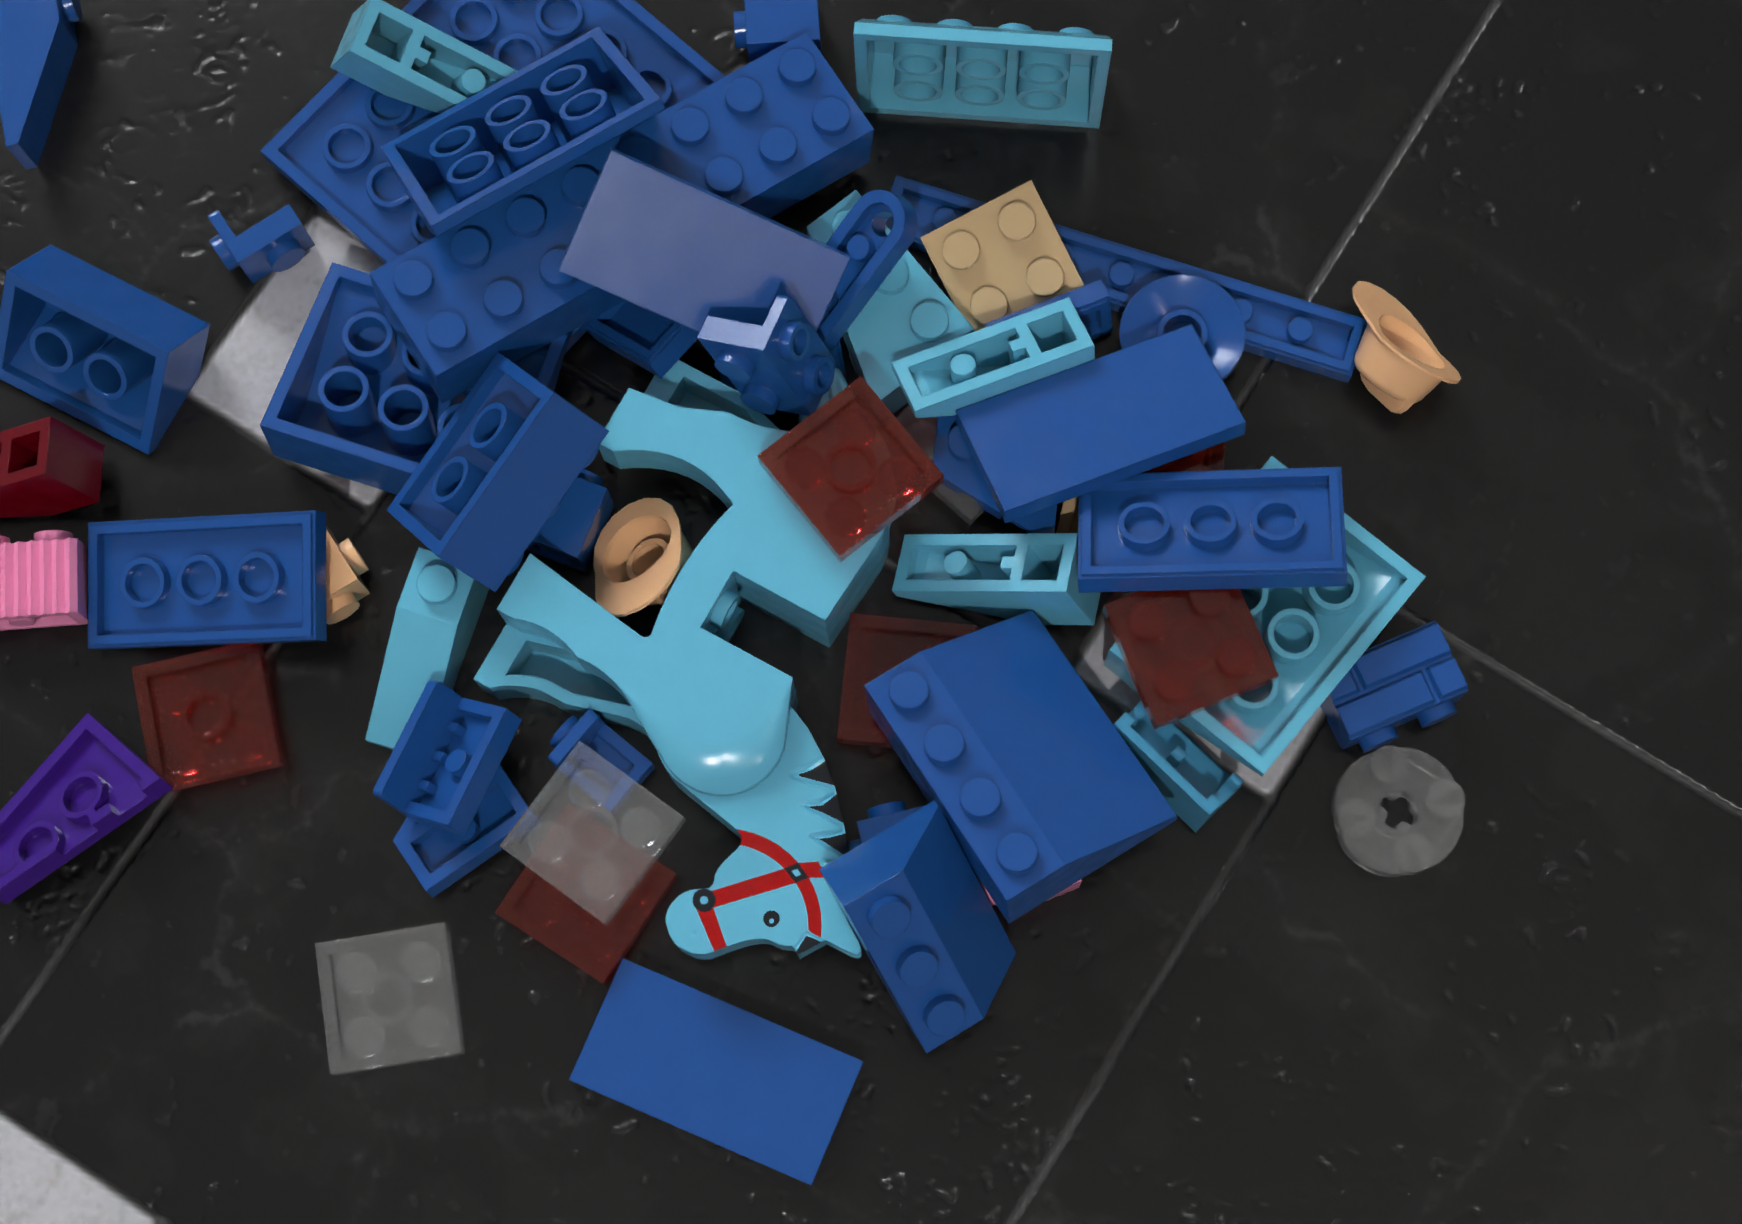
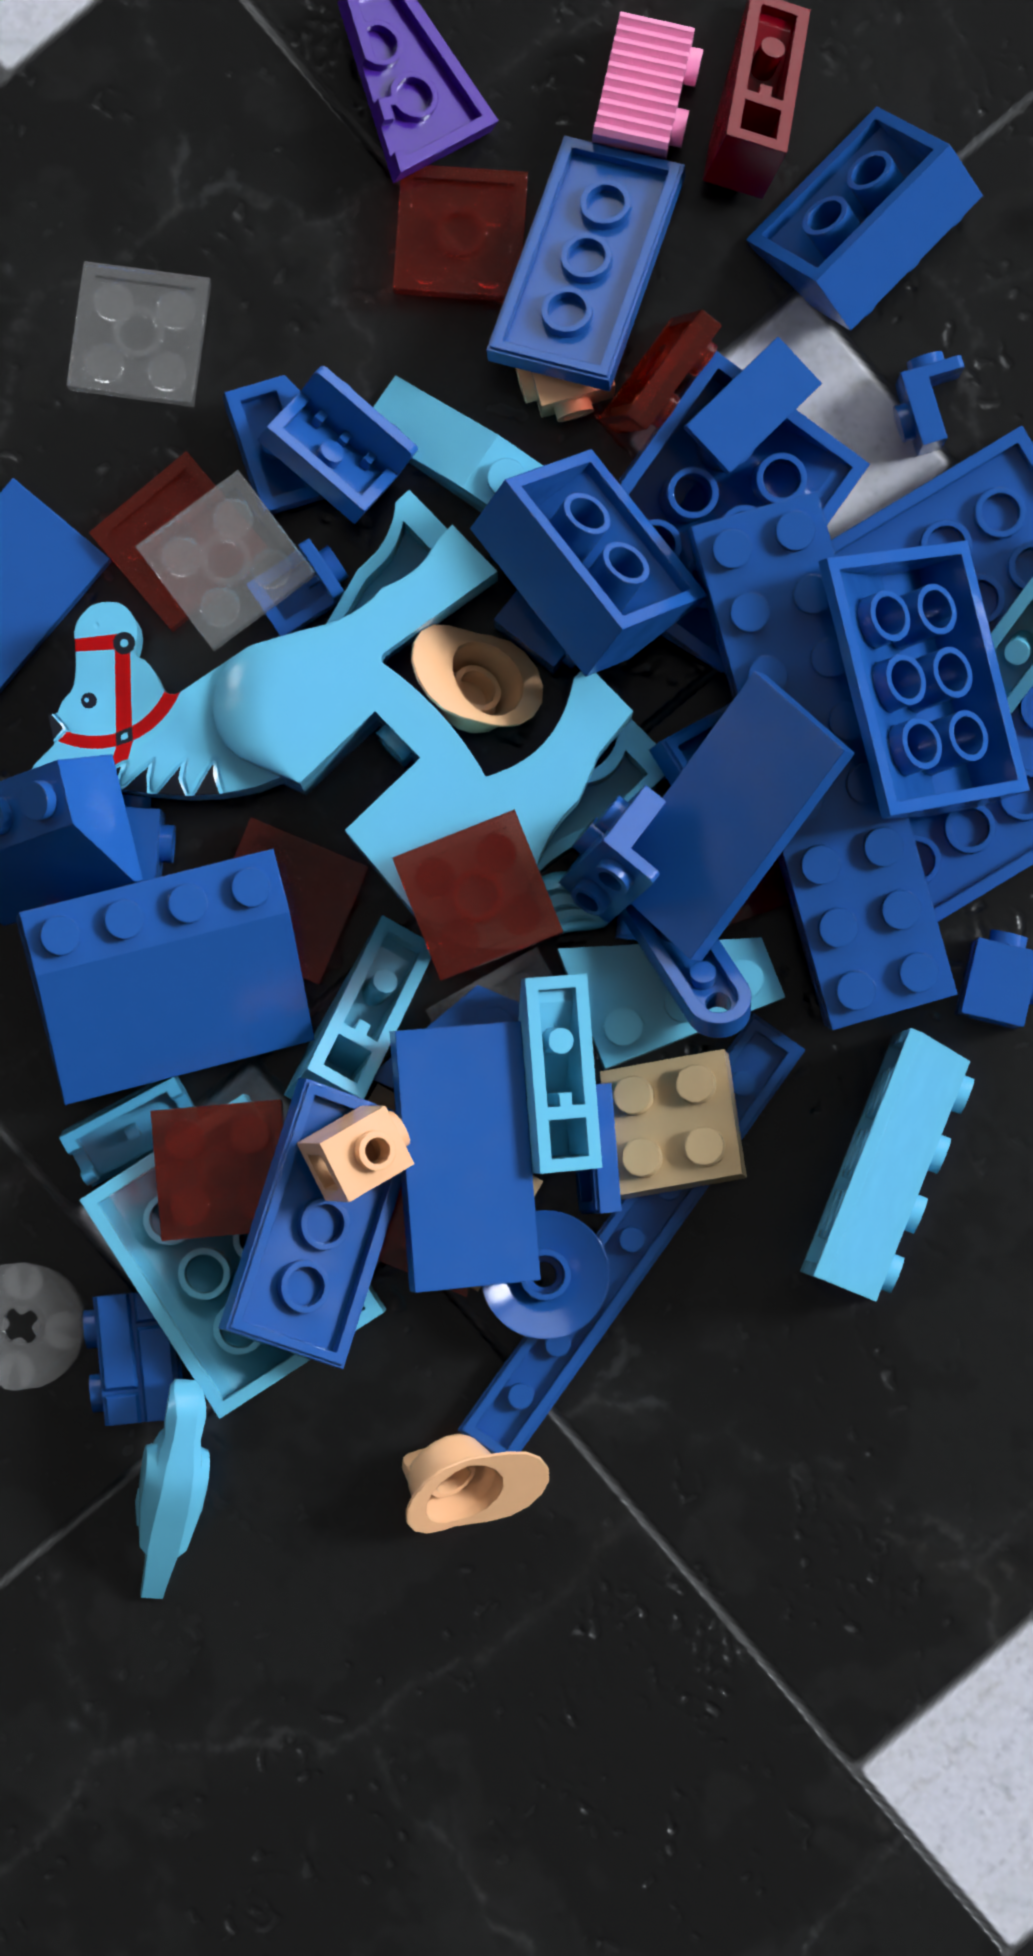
camera: 105 degrees right, 10 degrees up
(294, 474) = (649, 390): none -> clear red plate
(304, 373) = (752, 405): none -> blue tile
(1135, 505) = (357, 1152): none -> light nougat brick
(1500, 607) = (172, 1486): none -> medium azure animal

